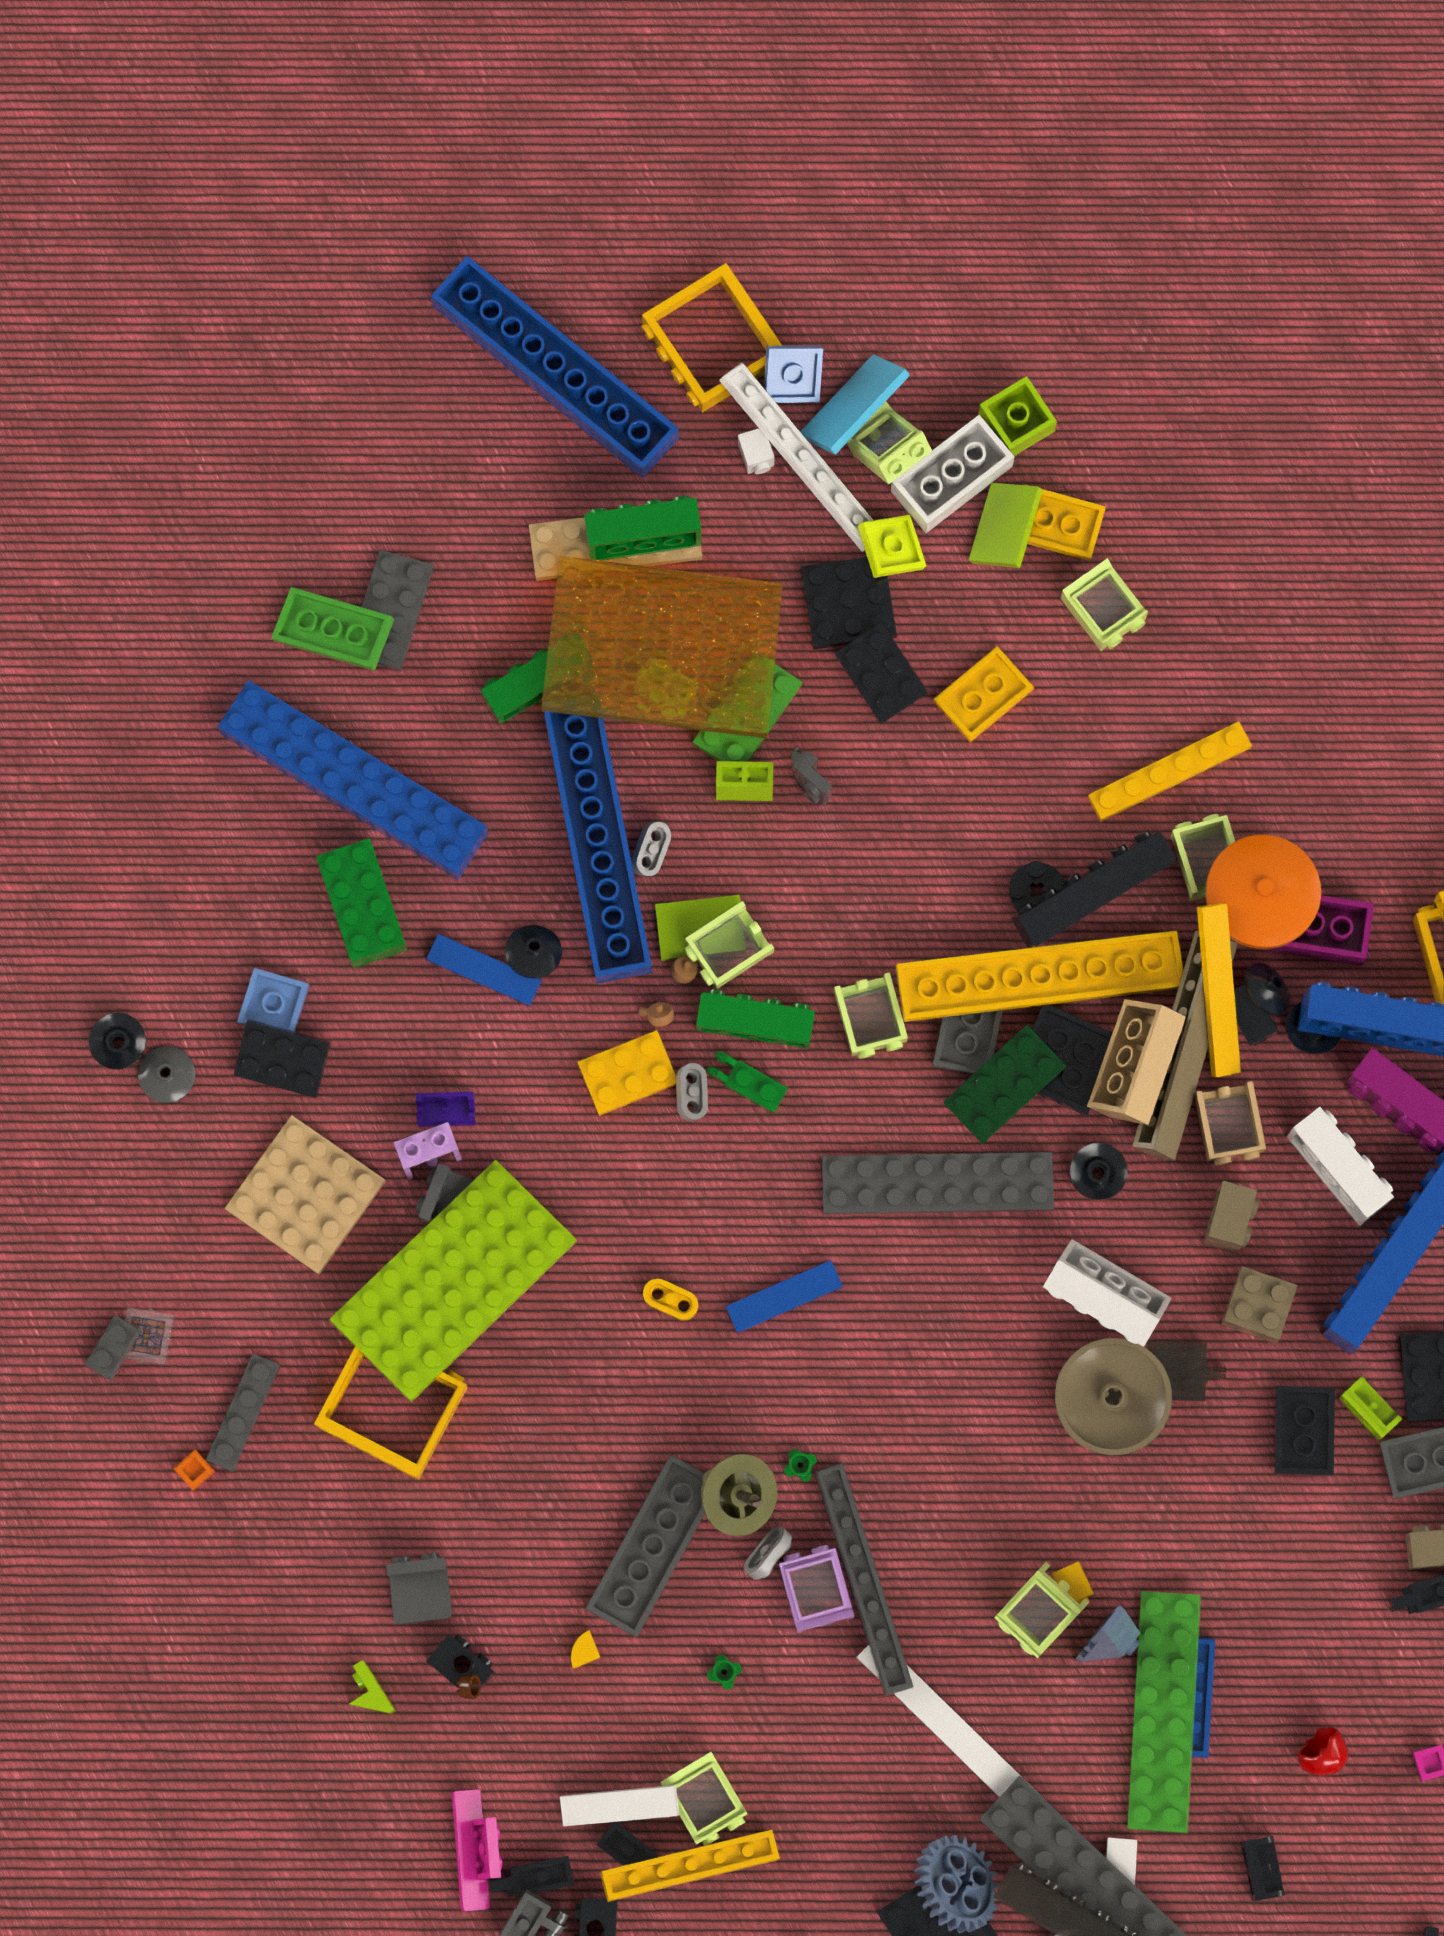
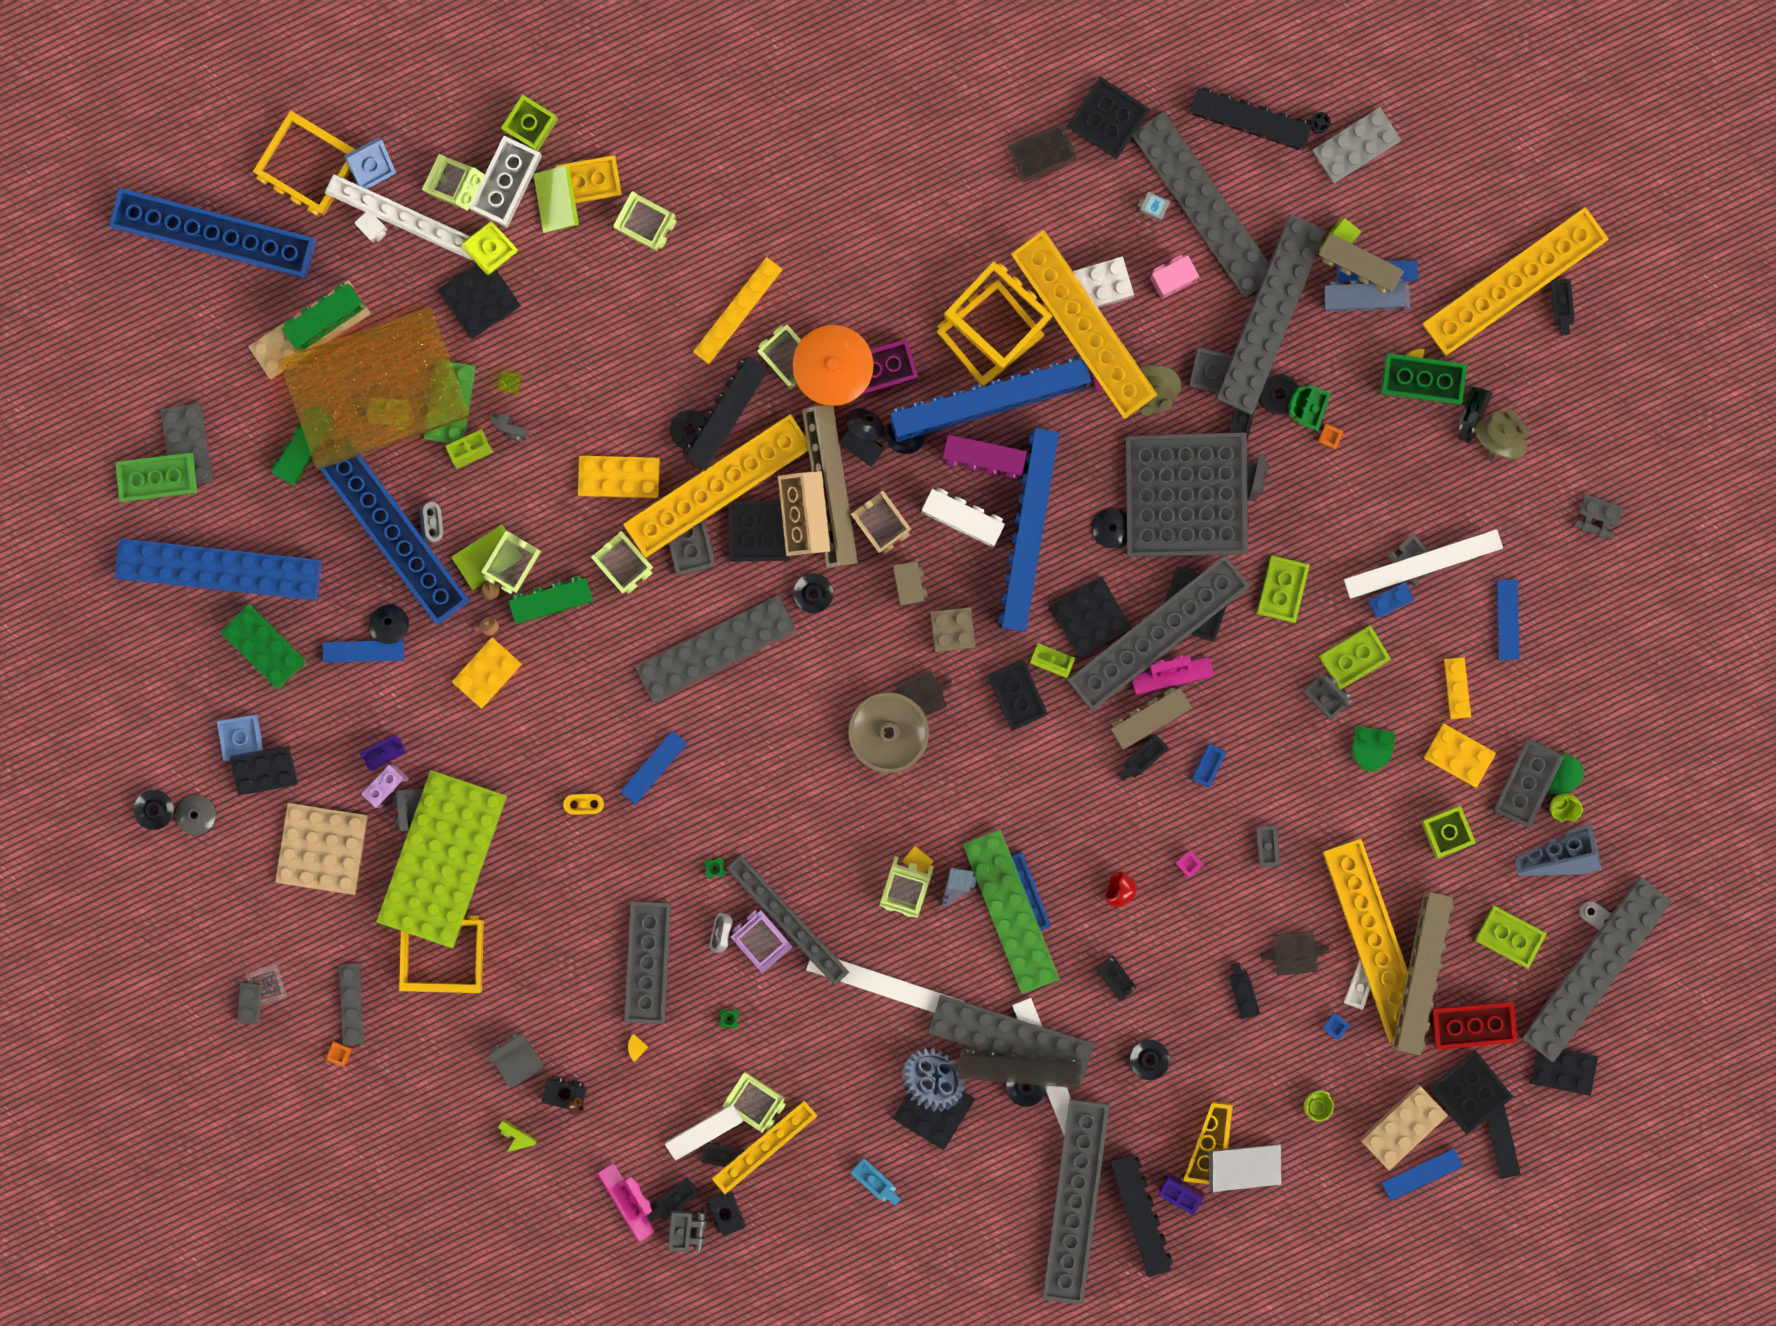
camera: 25 degrees left, 10 degrees up
(692, 1093) = (533, 666): light grey plate -> none
(739, 1494) = (685, 907): olive piece -> none
(749, 1083) = (567, 642): green hinge -> none
(836, 723) = (510, 382): none -> clear neon green plate
(854, 404) = (419, 165): medium azure tile -> none
(881, 673) = (522, 336): black plate -> none
(917, 906) = (618, 477): none -> yellow plate
(983, 694) = (595, 317): yellow tile -> none
(1004, 1084) = (728, 566): dark green plate -> none
(1107, 1293) = (854, 669): white brick -> none
(1218, 989) = (834, 442): yellow tile -> none

